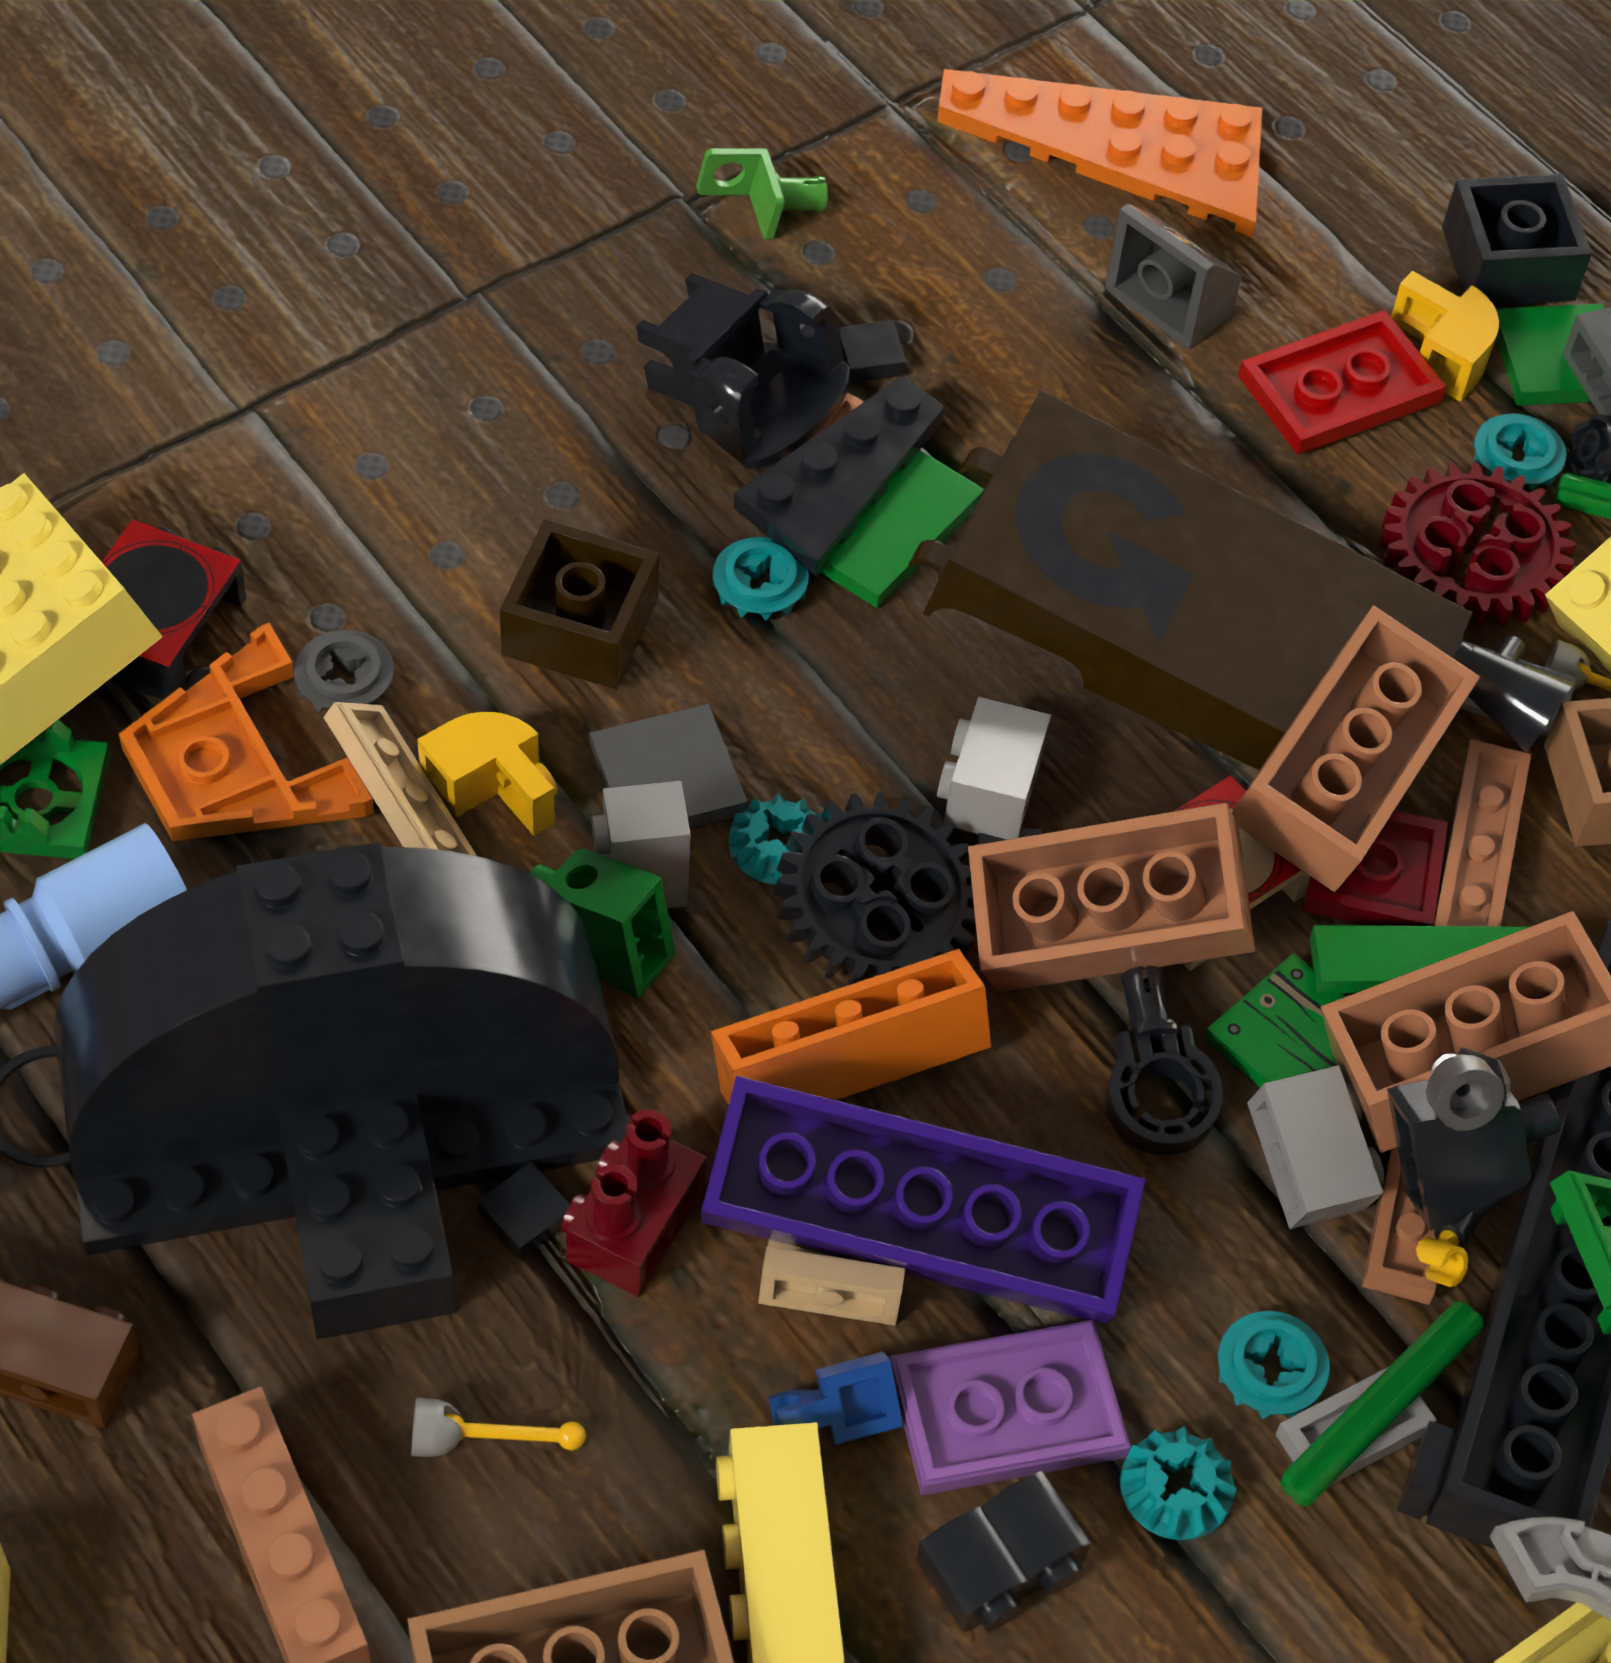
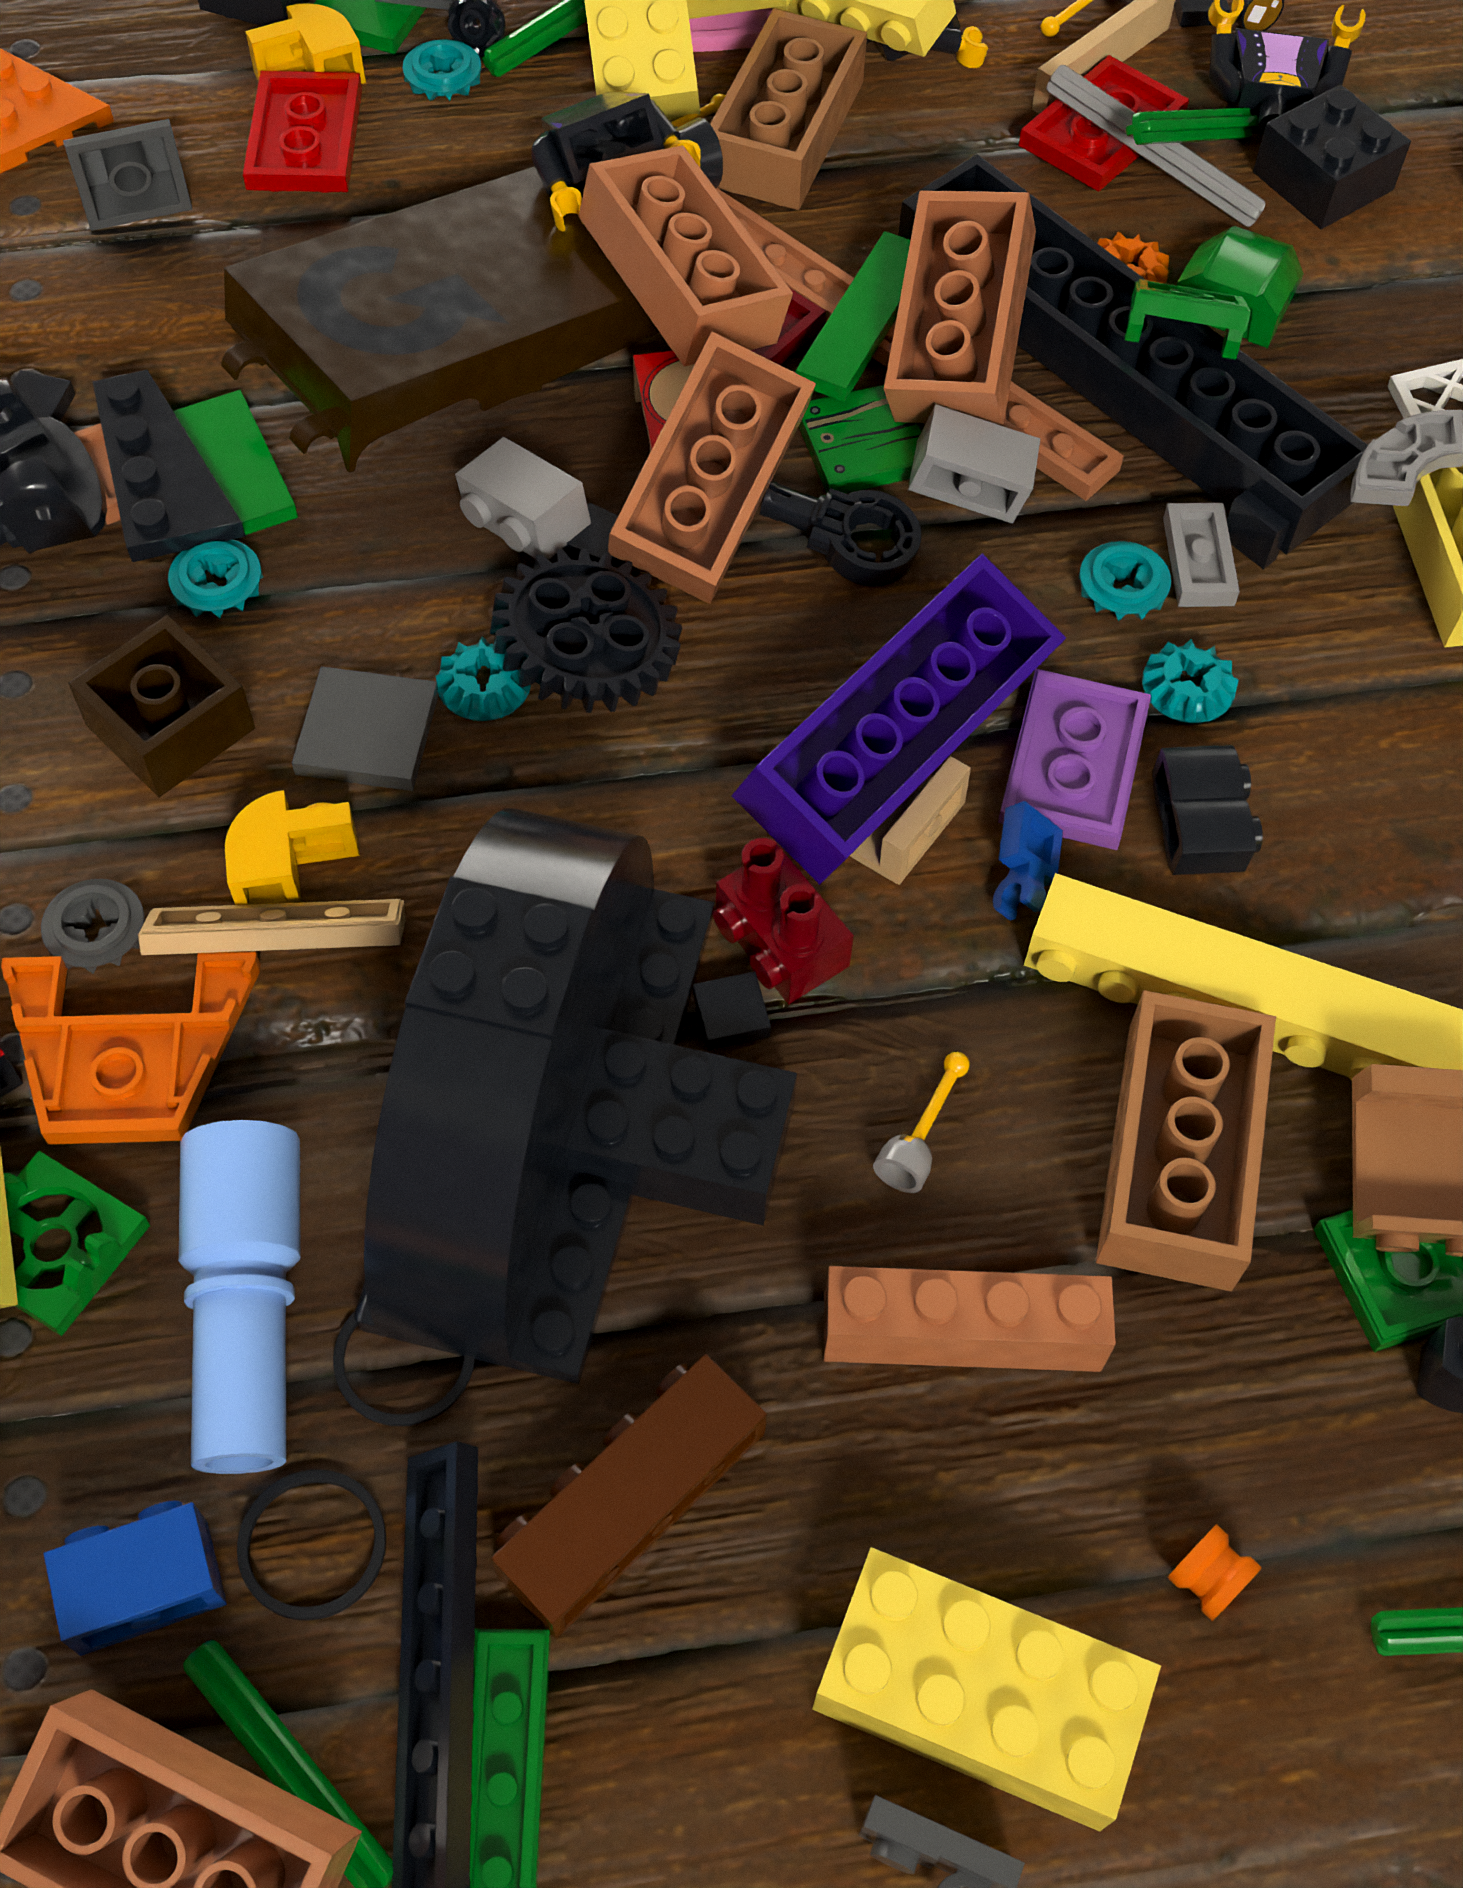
camera: 60 degrees left, 5 degrees up
(621, 913) = (470, 804): green torso -> none
(648, 831) = (453, 760): light grey brick -> none
(861, 1032) = (718, 703): orange brick -> none
(1381, 1403) = (1204, 523): green axle -> none
(1445, 519) = (488, 143): dark red gear -> none
(1456, 607) = (594, 132): none -> black torso
(1463, 1150) = (1051, 359): black torso -> none

